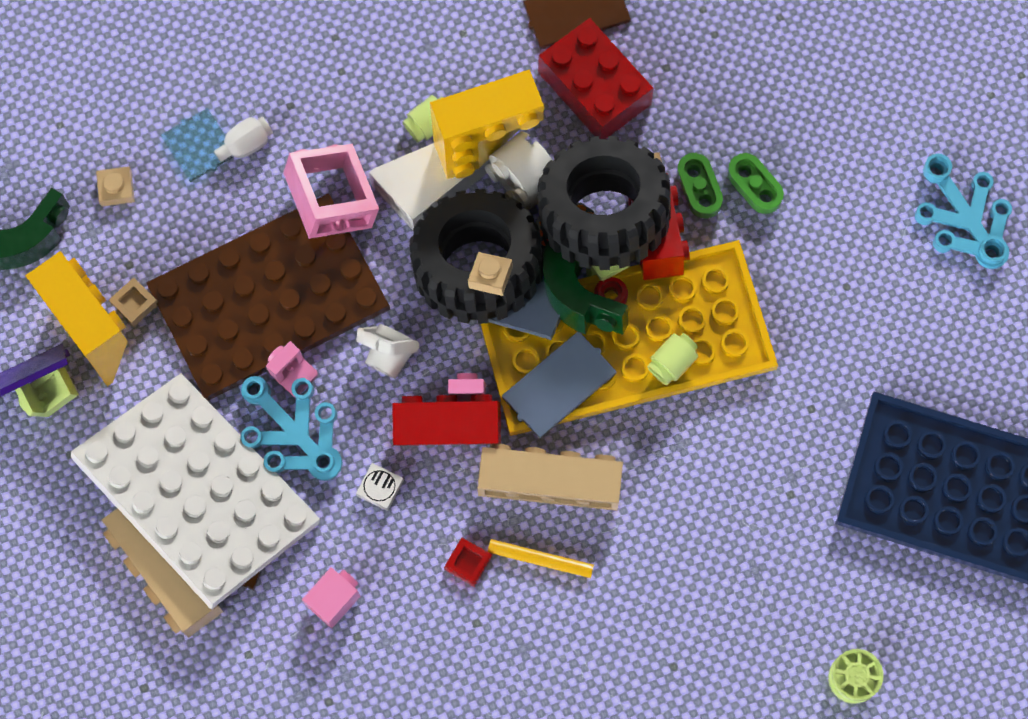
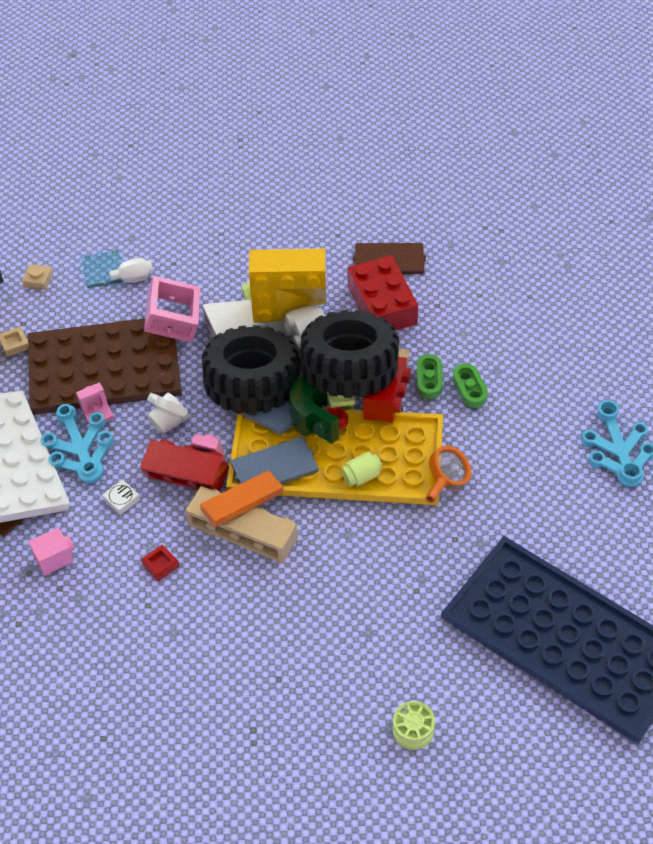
camera: 20 degrees right, 20 degrees down
(490, 273) = (249, 369): tan plate -> none
(540, 558) = (213, 576): yellow bar -> none
(543, 450) = (241, 498): none -> orange tile
(777, 320) = (449, 469): none -> orange piece

